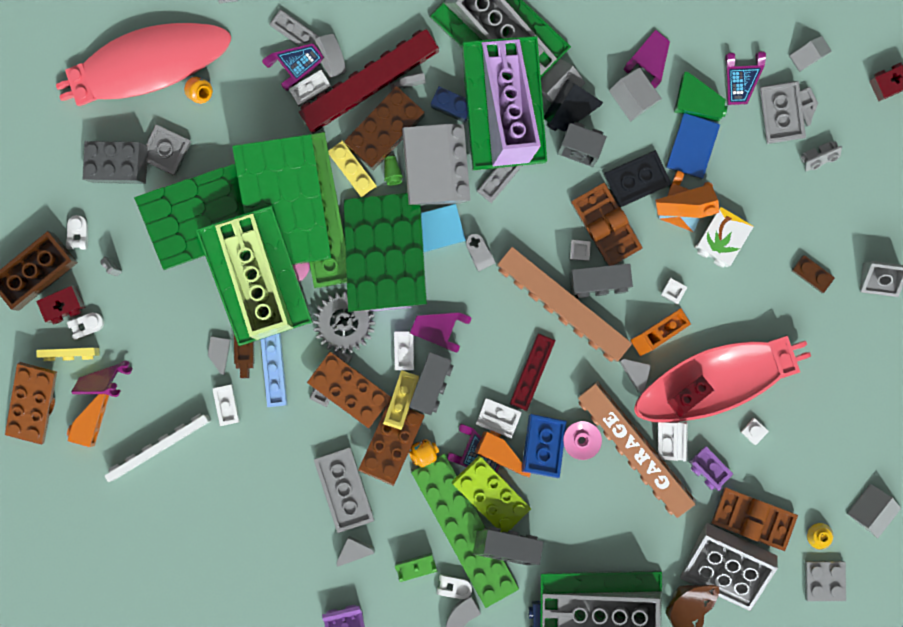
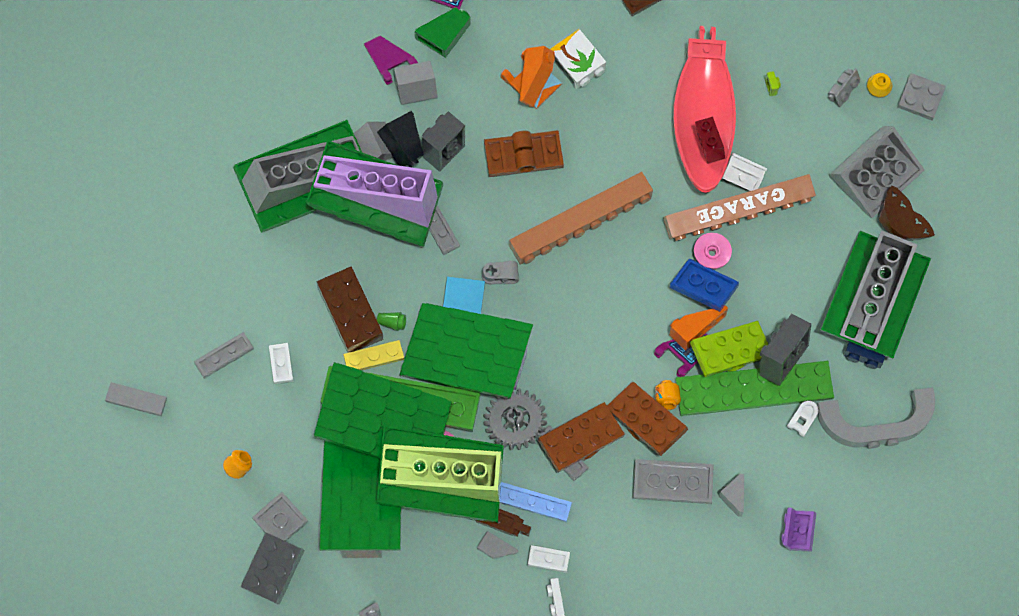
camera: 75 degrees left, 15 degrees down
(145, 61) = (187, 506): coral windscreen -> none
(296, 61) = (251, 365): flag -> none
(333, 58) = (267, 331): light grey slope -> none
(368, 81) = (299, 308): dark red brick -> none
(401, 400) = (610, 393): light yellow plate -> none
(404, 350) = (564, 375): white plate -> none
(409, 81) = (315, 272): light grey tile -> none
(416, 567) = (772, 444): bright green hinge -> none
(431, 384) = (606, 360): dark grey brick -> none
(436, 164) = (405, 274): light grey slope -> none
(438, 328) = (556, 336): magenta flag -> none
(450, 104) = (354, 242): dark blue brick -> none
(498, 418) = (661, 316): white plate -> none
(532, 372) = (631, 271): dark red tile -> none
(580, 250) = (537, 185): white plate -> none
(601, 280) = (573, 175): dark grey brick -> none
(637, 179) = (492, 111): black tile -> none
(637, 373) = (670, 180): light grey slope -> none
(660, 332) = (641, 146): orange slope -> none
(673, 291) = (608, 120): white plate -> none
(693, 146) = (483, 53): blue tile -> none
(710, 468) = (782, 151): medium lavender bracket -> none
(754, 431) = (763, 103): white plate -> none
(754, 519) = (842, 133): dark orange plate -> none
(777, 433) = (773, 83): none -> lime plate
(812, 505) = (849, 80): none -> light grey hinge
(874, 510) = (874, 31): light grey slope -> none

